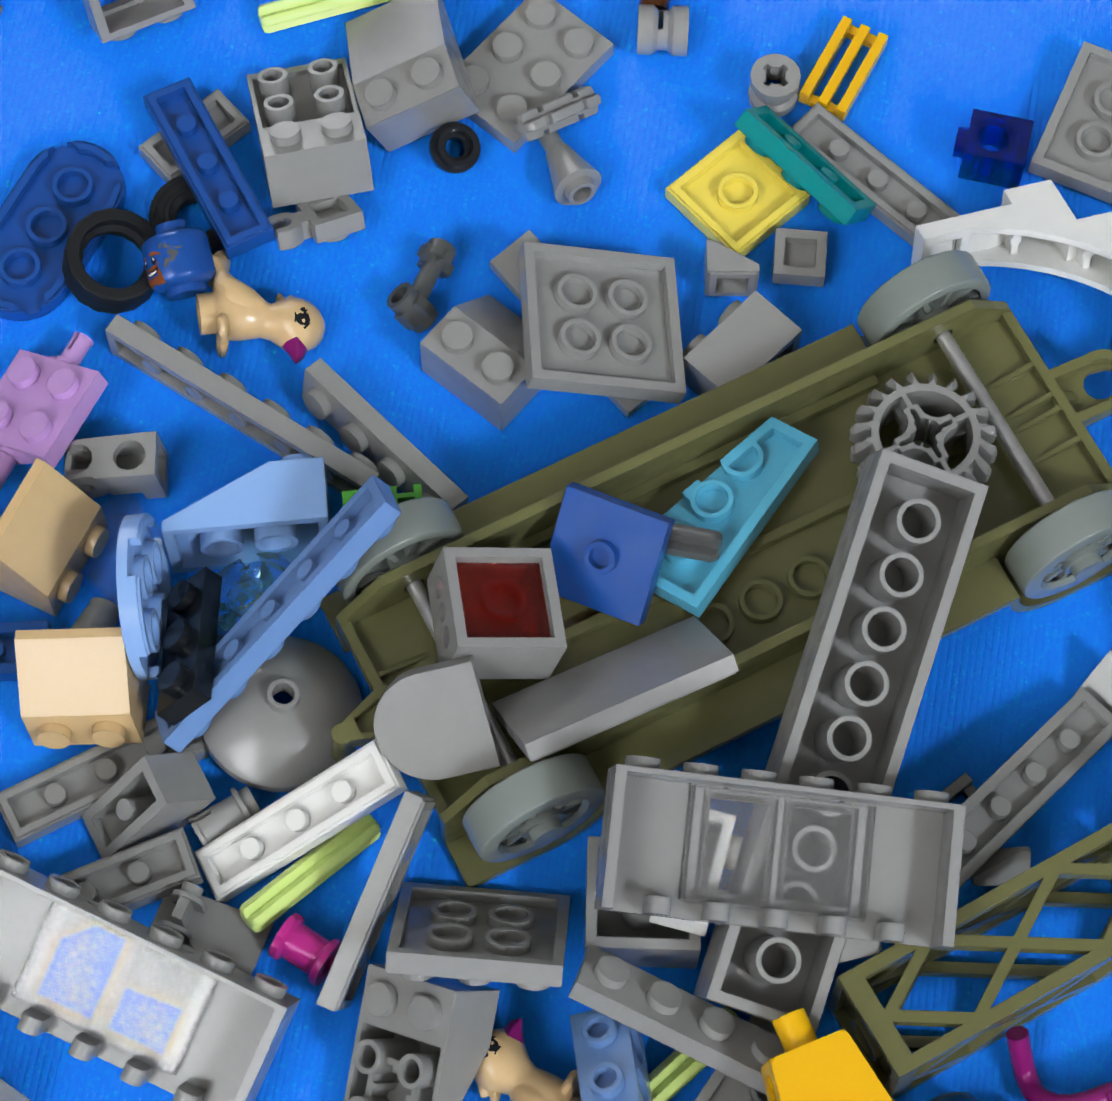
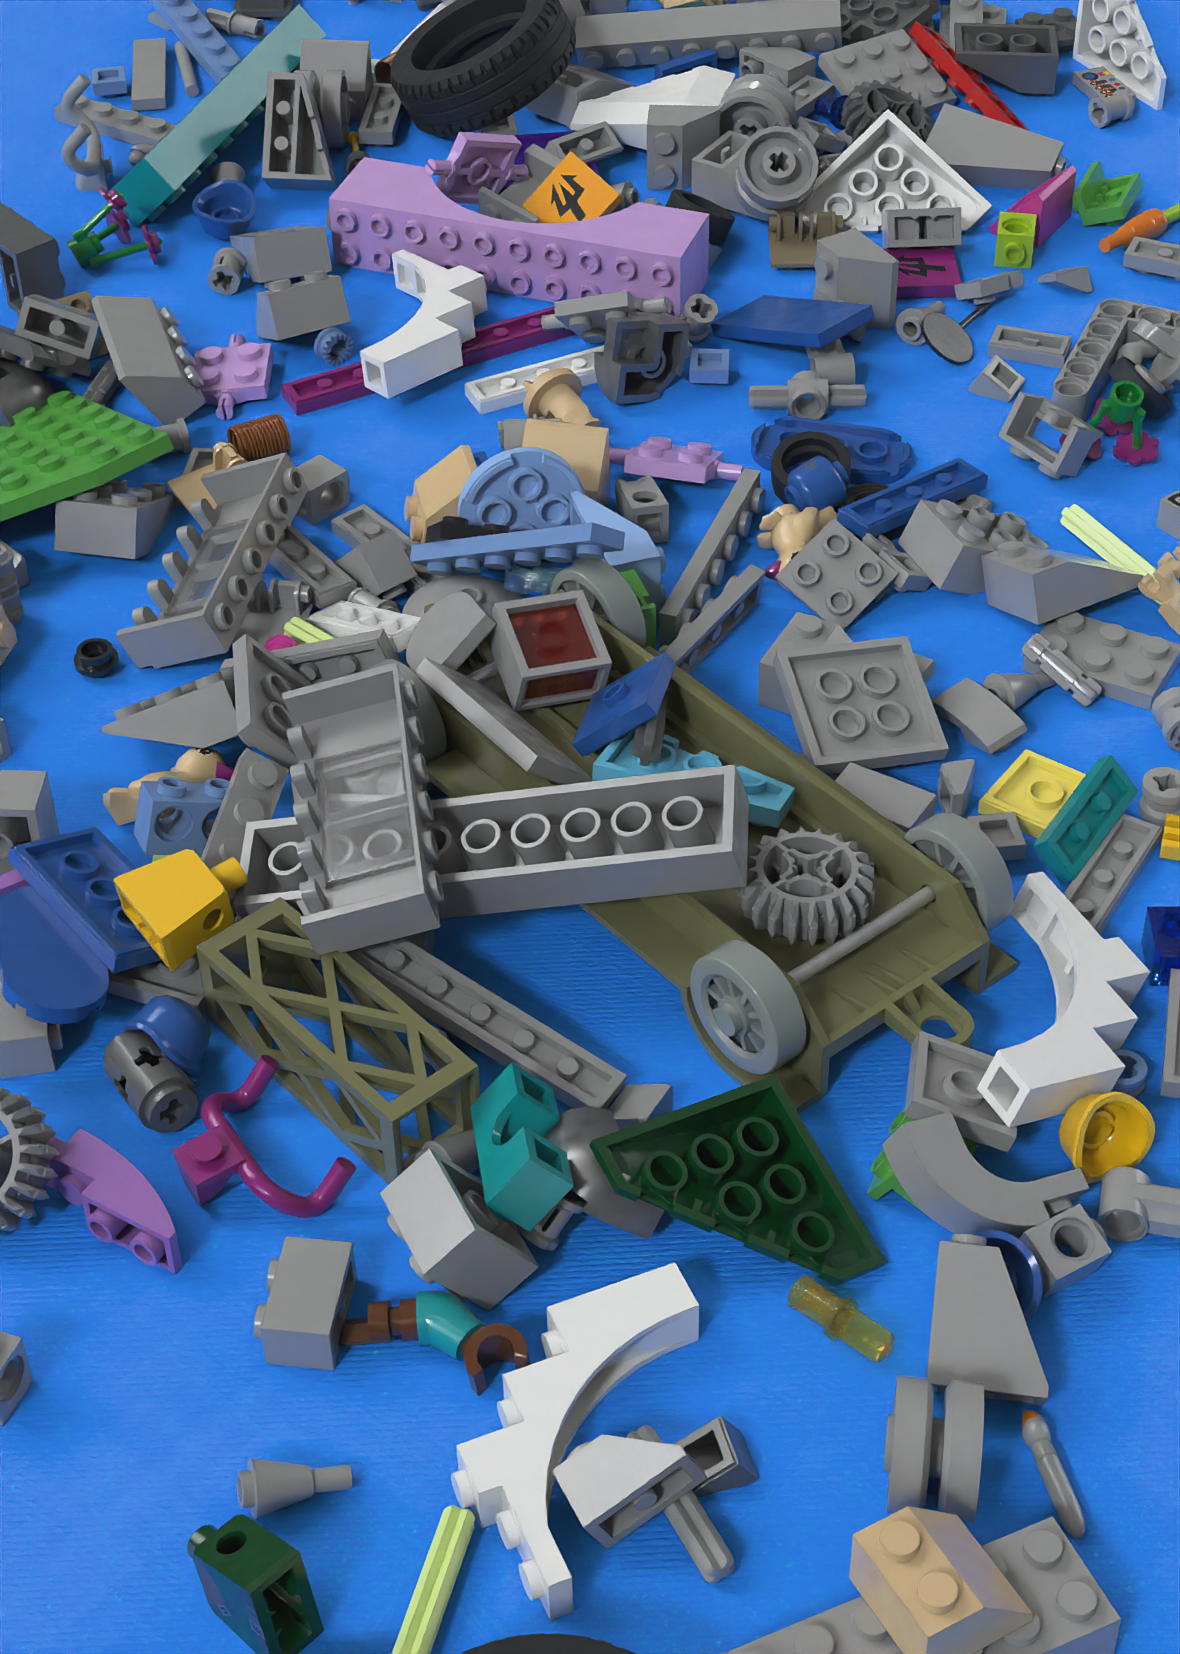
camera: 80 degrees right, 25 degrees down
(333, 286) = (837, 575): none -> light grey hinge
(411, 301) = (846, 618): dark grey bar -> none
(469, 147) = (998, 616): black plate -> none
(608, 214) = (980, 715): none -> light grey slope

